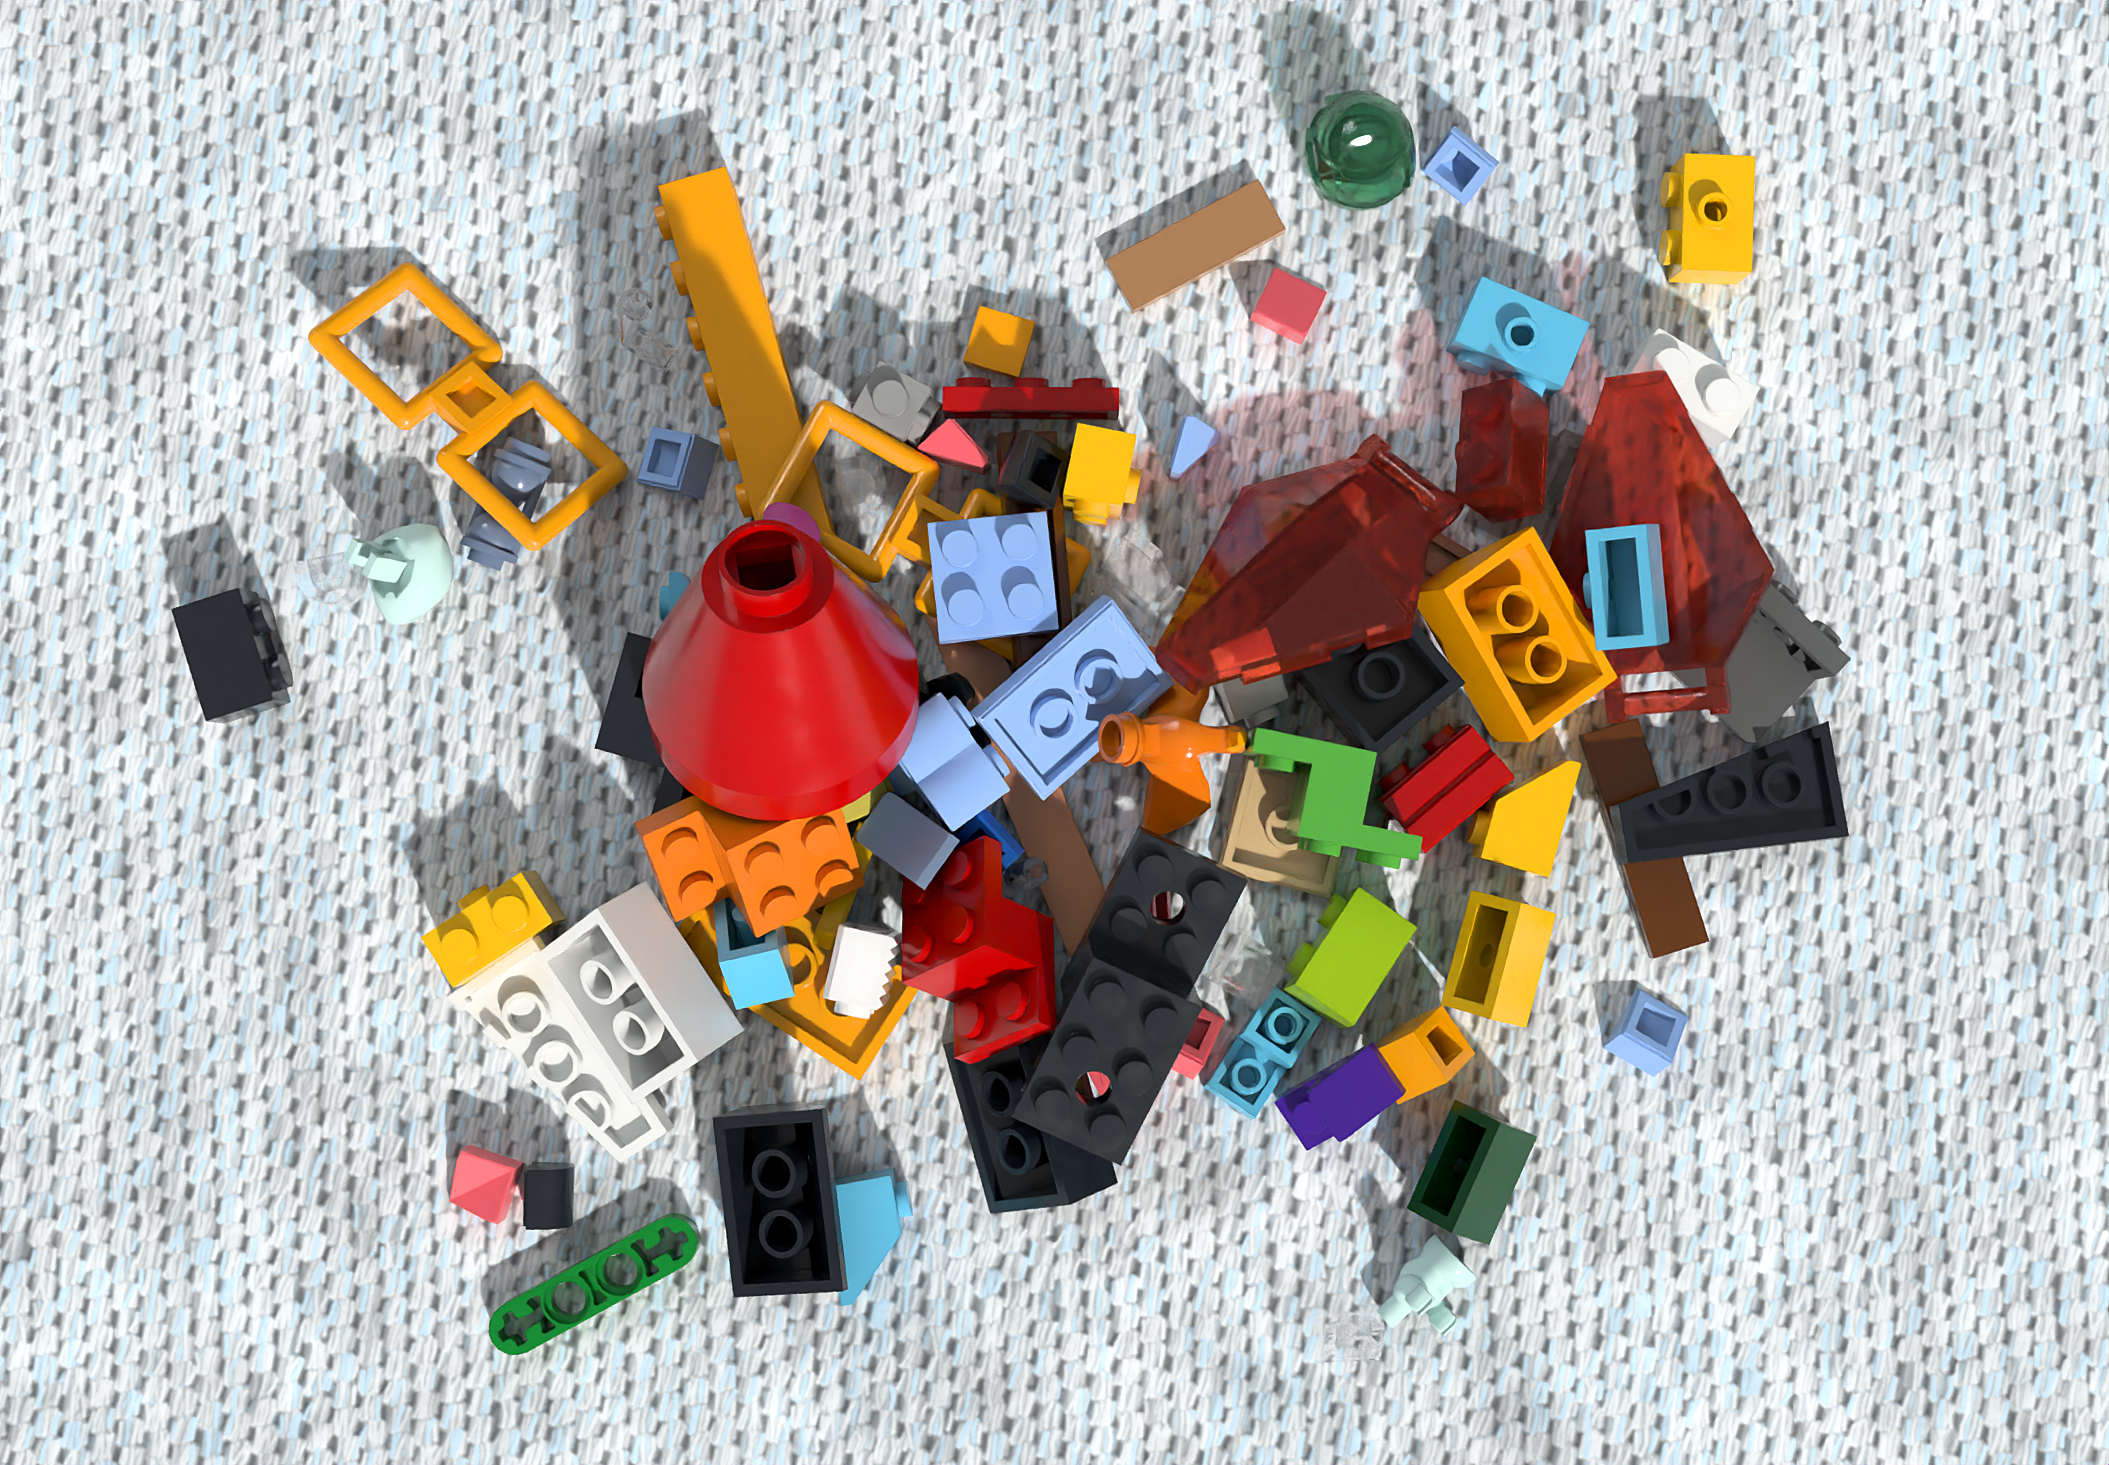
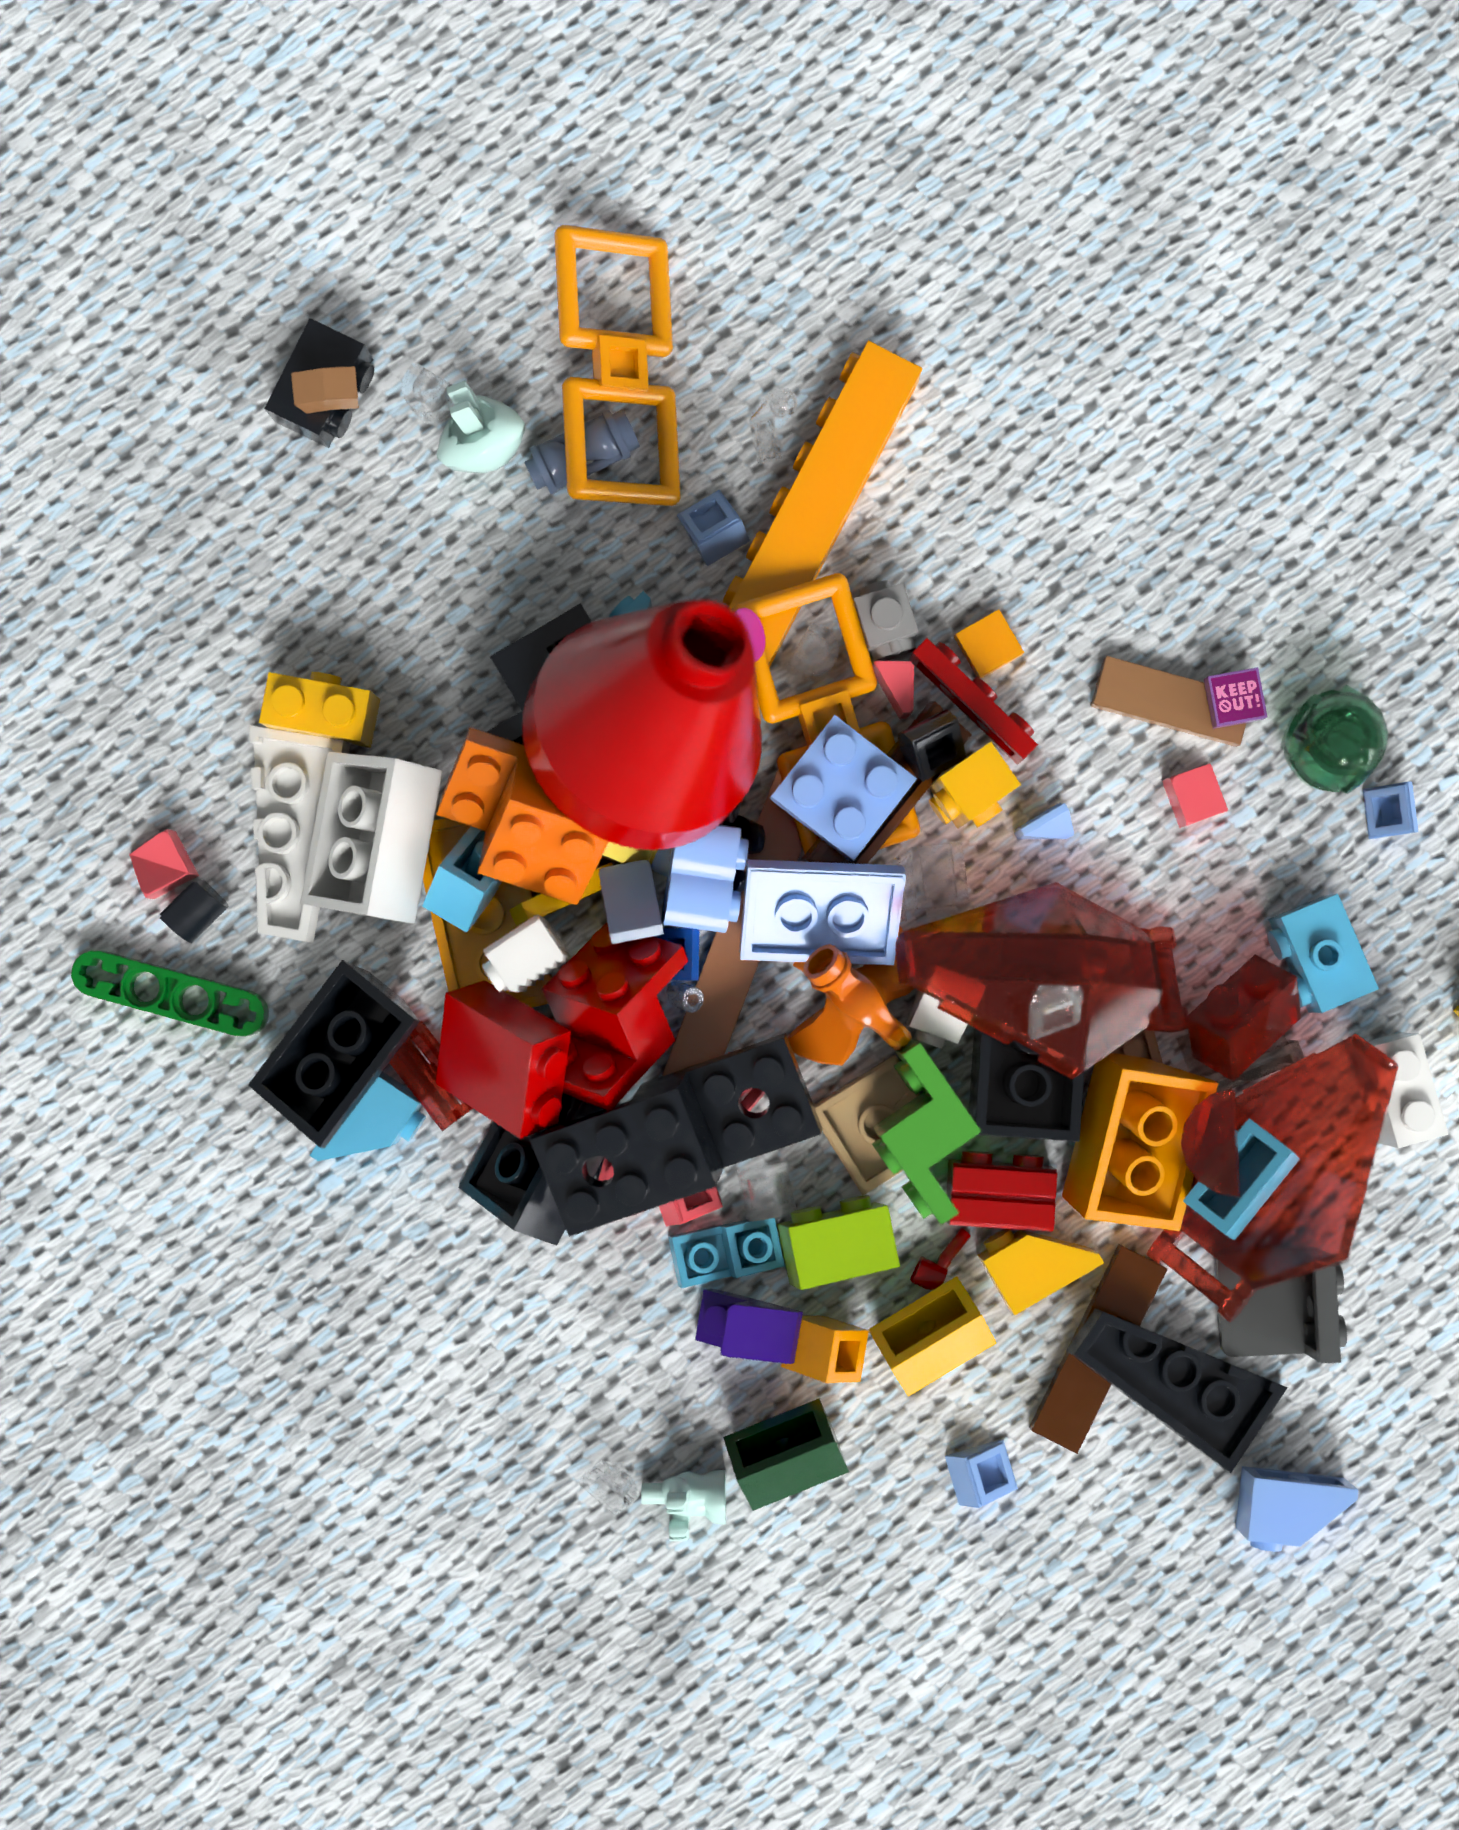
camera: 45 degrees right, 0 degrees up
(242, 656) = (325, 389): none -> medium nougat piece
(878, 1149) = (421, 1077): none -> clear red tile
(924, 1071) = (502, 1058): none -> red brick
(1244, 194) = (1235, 698): none -> tile
(1341, 594) = (1054, 1009): none -> clear slope
(1450, 908) = (931, 1274): none -> red hand
(1575, 580) = (1212, 1143): none -> clear red tile
(1921, 817) = (1288, 1506): none -> light blue slope

